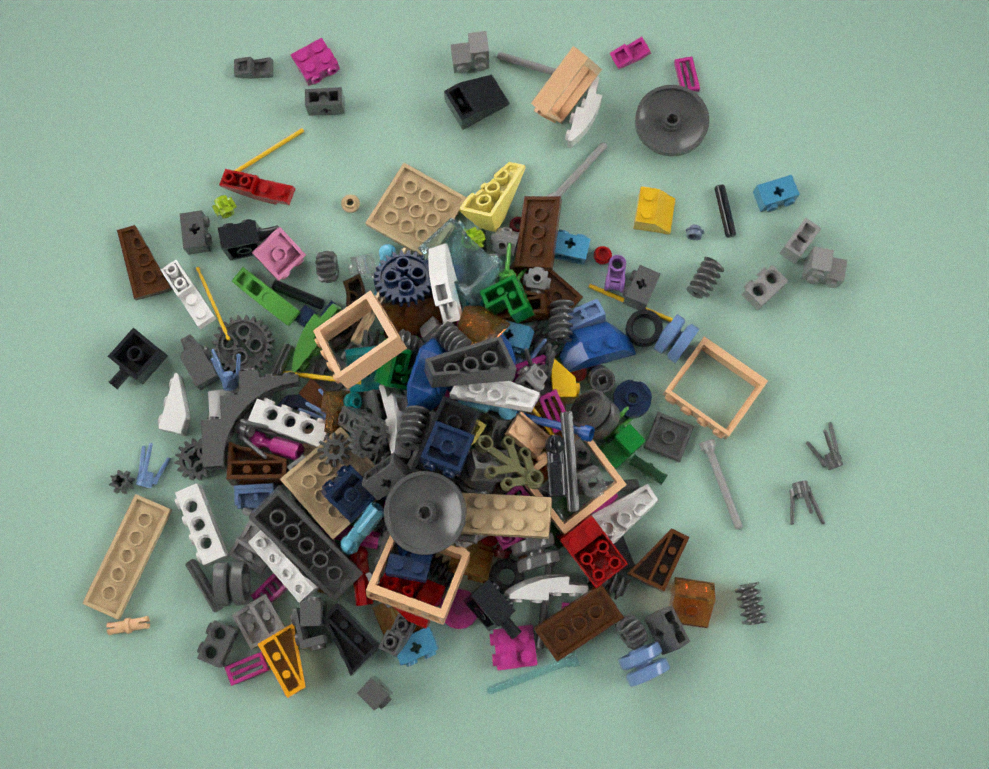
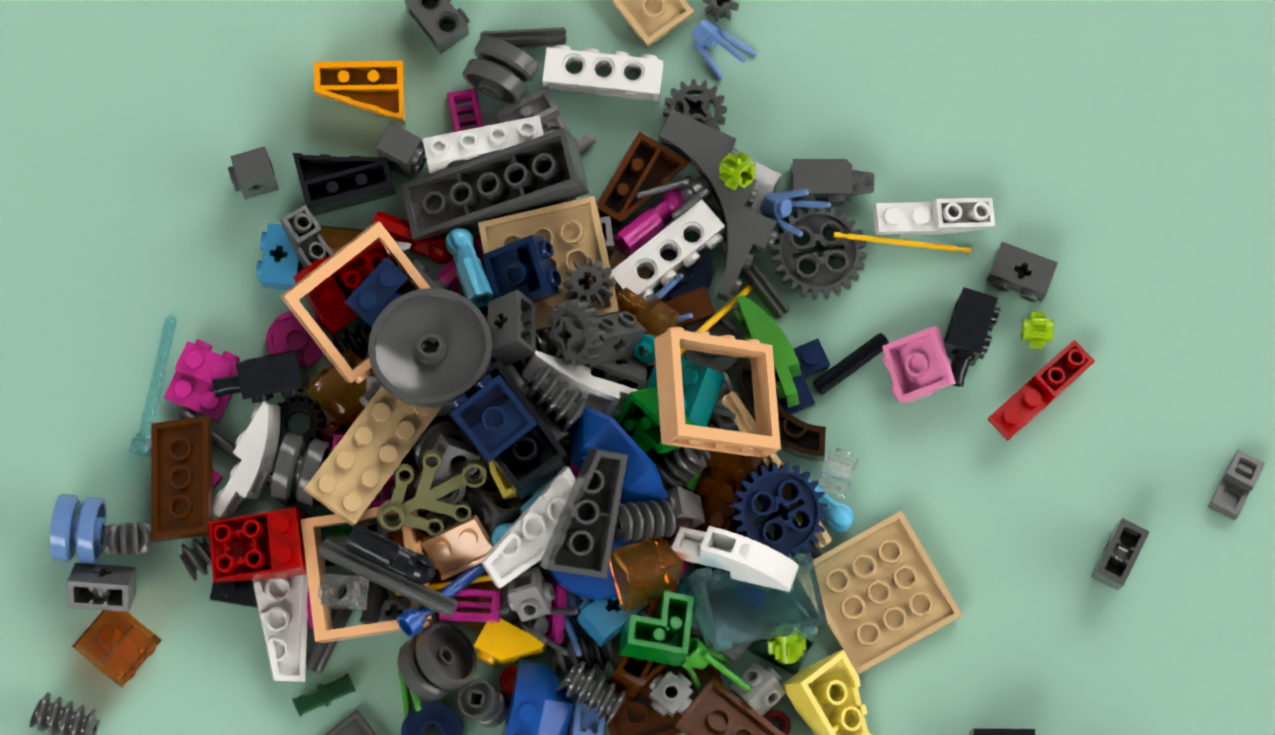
camera: 115 degrees right, 0 degrees up
(126, 358) = (889, 90): black brick -> none
(142, 268) = (1016, 176): reddish brown wing -> none
(176, 411) = (776, 119): white slope -> none
(220, 406) = (737, 170): none -> lime gear
(252, 495) = (603, 159): medium blue hinge -> none
(258, 621) = (434, 80): light grey slope -> none
(263, 662) = (375, 29): dark pink tile -> none
(265, 296) = (869, 315): bright green slope -> none
(268, 151) = (1092, 437): yellow axle -> none
(302, 637) = (372, 122): dark grey bracket -> none
(315, 62) = (1196, 578): dark pink plate -> none
(327, 266) = (864, 421): dark grey gear -> none
(350, 208) = (944, 517): tan plate -> none
(625, 443) = (373, 673): green brick -> none
(660, 562) = (193, 632): reddish brown wedge -> none

